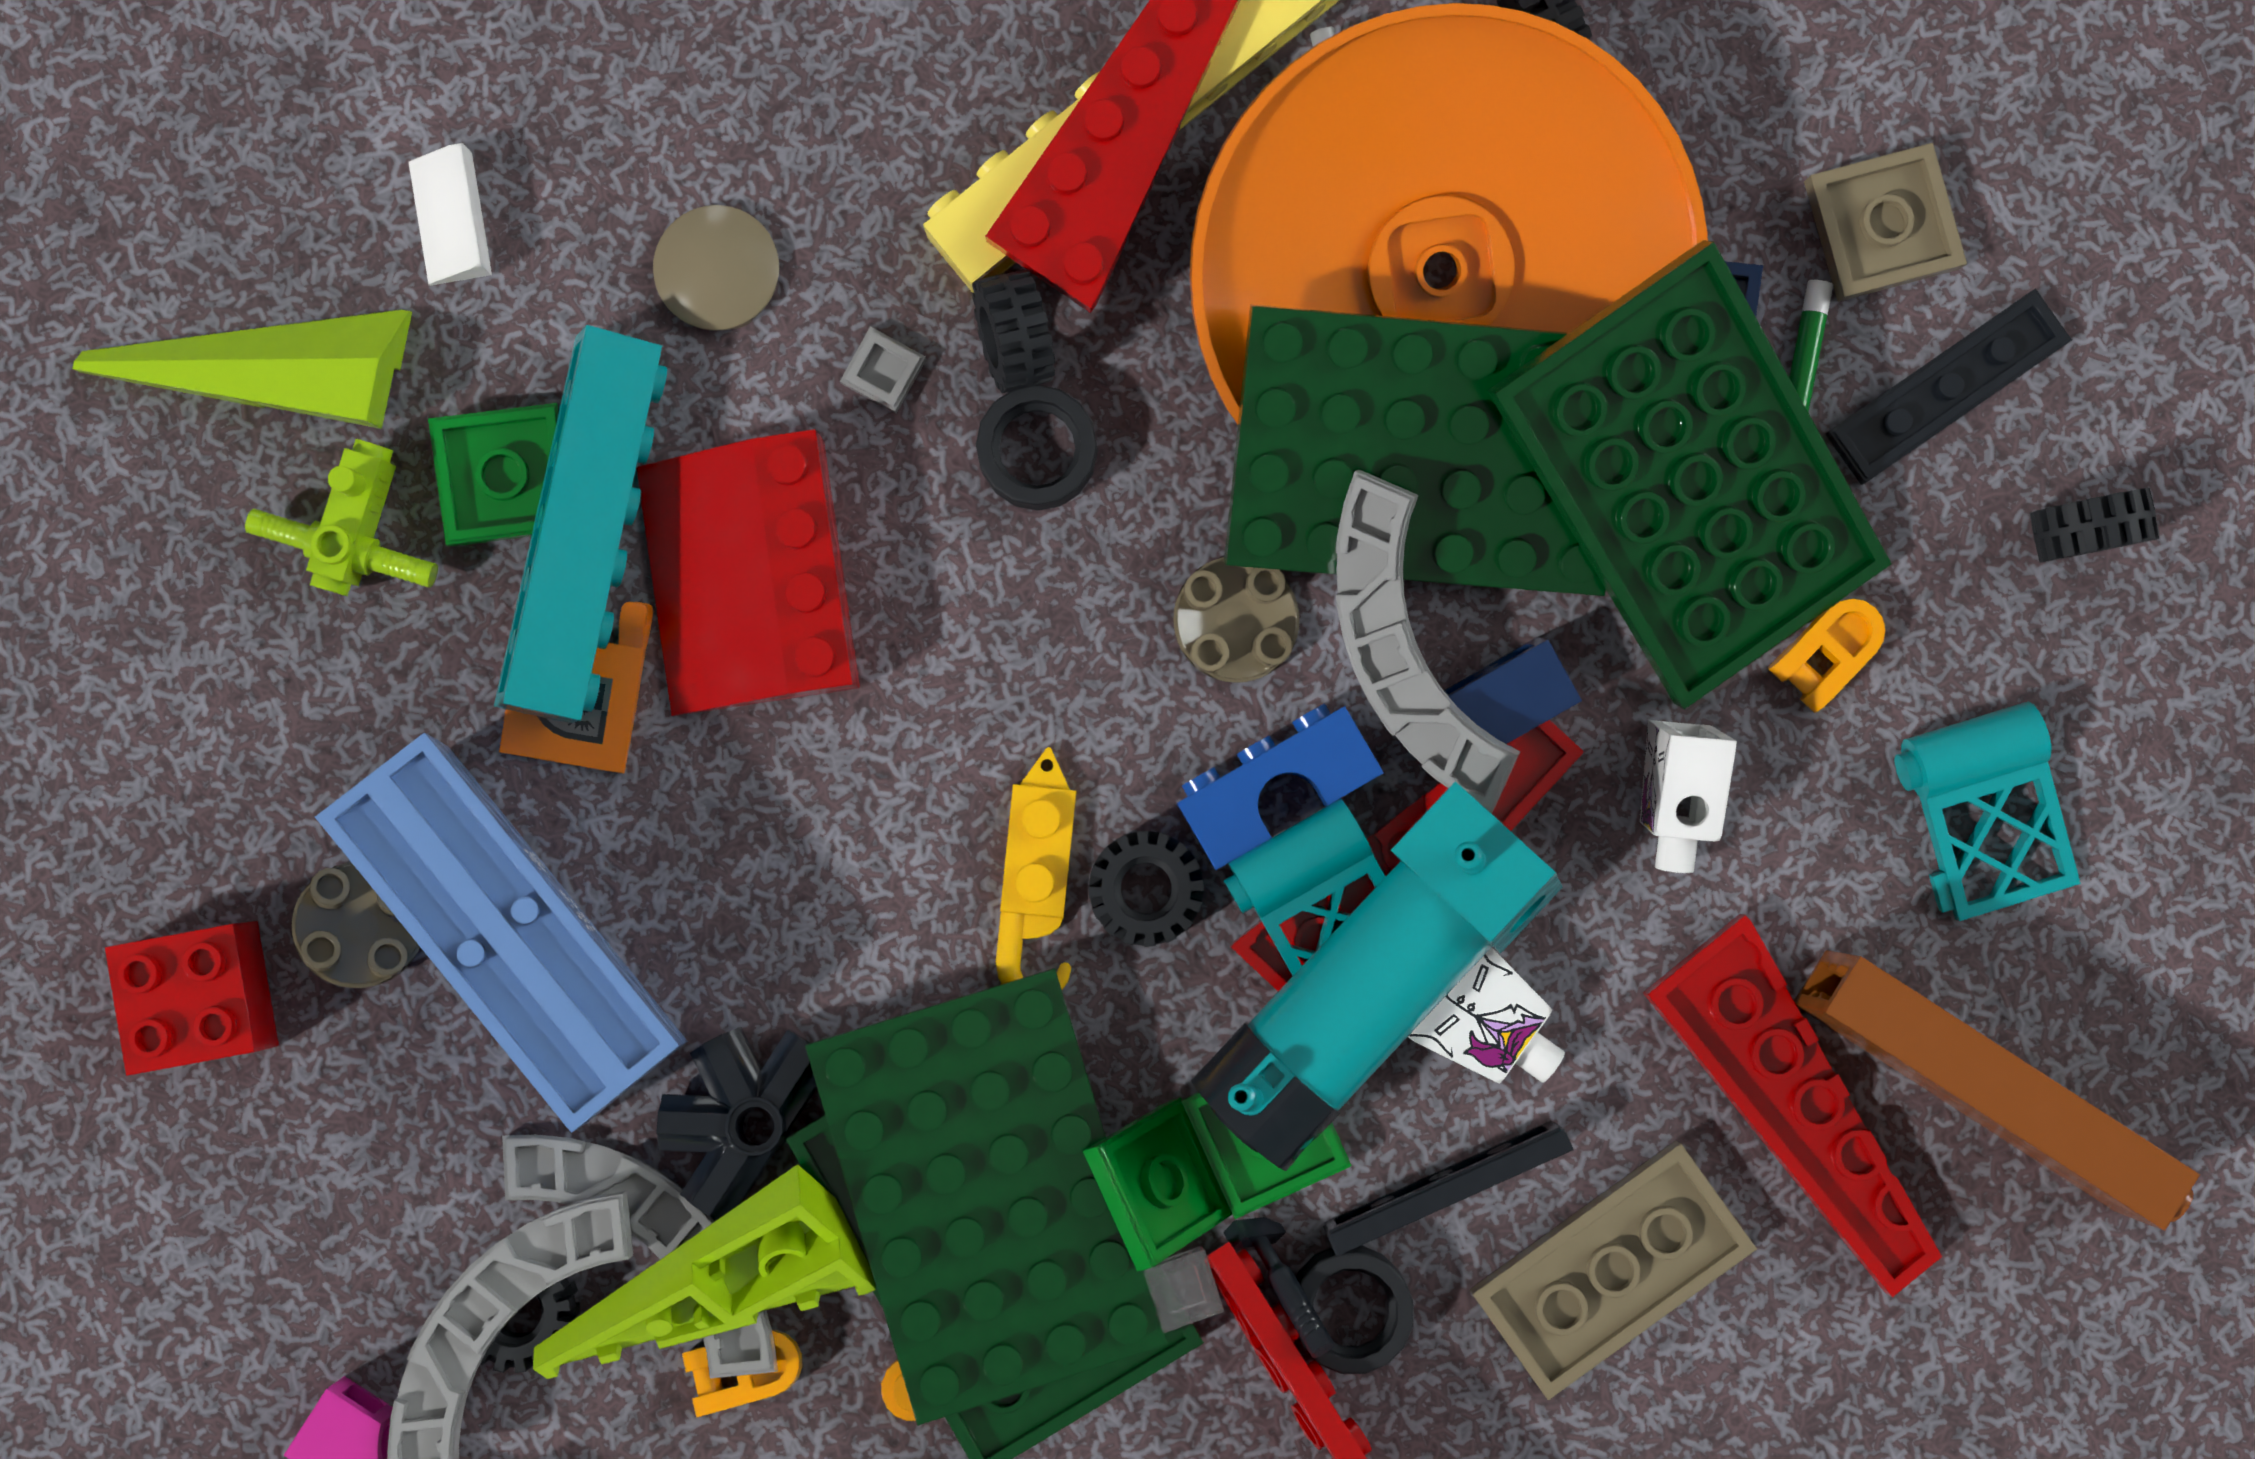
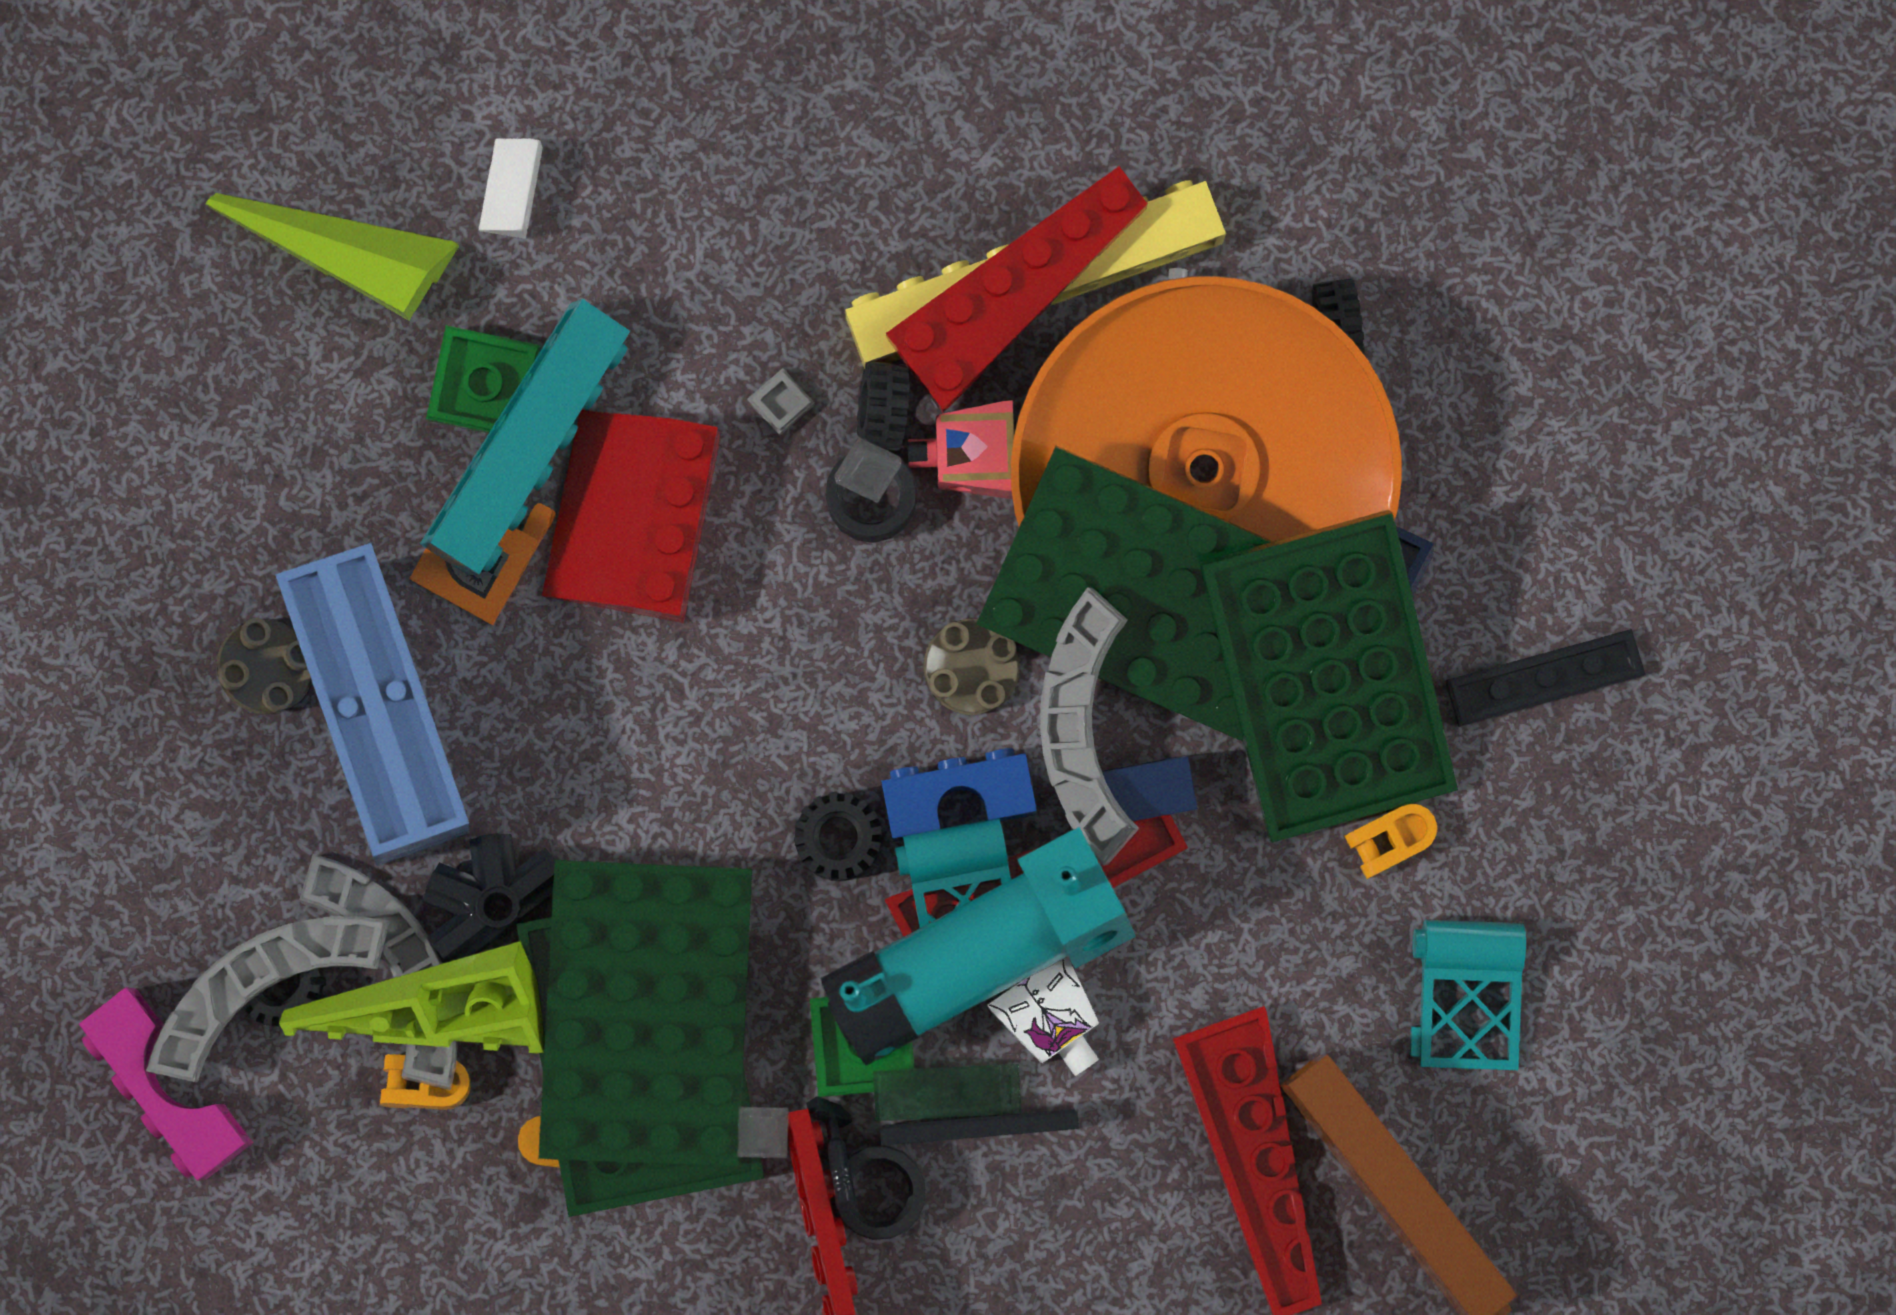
camera: 15 degrees right, 5 degrees down
(191, 997) = (130, 676): red brick -> none
(344, 540) = (354, 392): lime piece -> none
(716, 267) = (687, 288): dark tan dish -> none
(1023, 417) = (867, 470): none -> clear tile
(1035, 865) = (765, 793): yellow plate -> none
(1141, 348) = (970, 450): none -> coral torso
(1157, 1184) = (771, 1049): green plate -> none
(1391, 1158) = (947, 1092): none -> clear green tile
(1612, 1269) = (1079, 1231): dark tan plate -> none
(1680, 764) = (1256, 879): white torso -> none
(1810, 338) = (1453, 615): green bar -> none
(1885, 222) = (1538, 544): dark tan plate -> none
(2094, 525) = (1611, 811): black tyre -> none

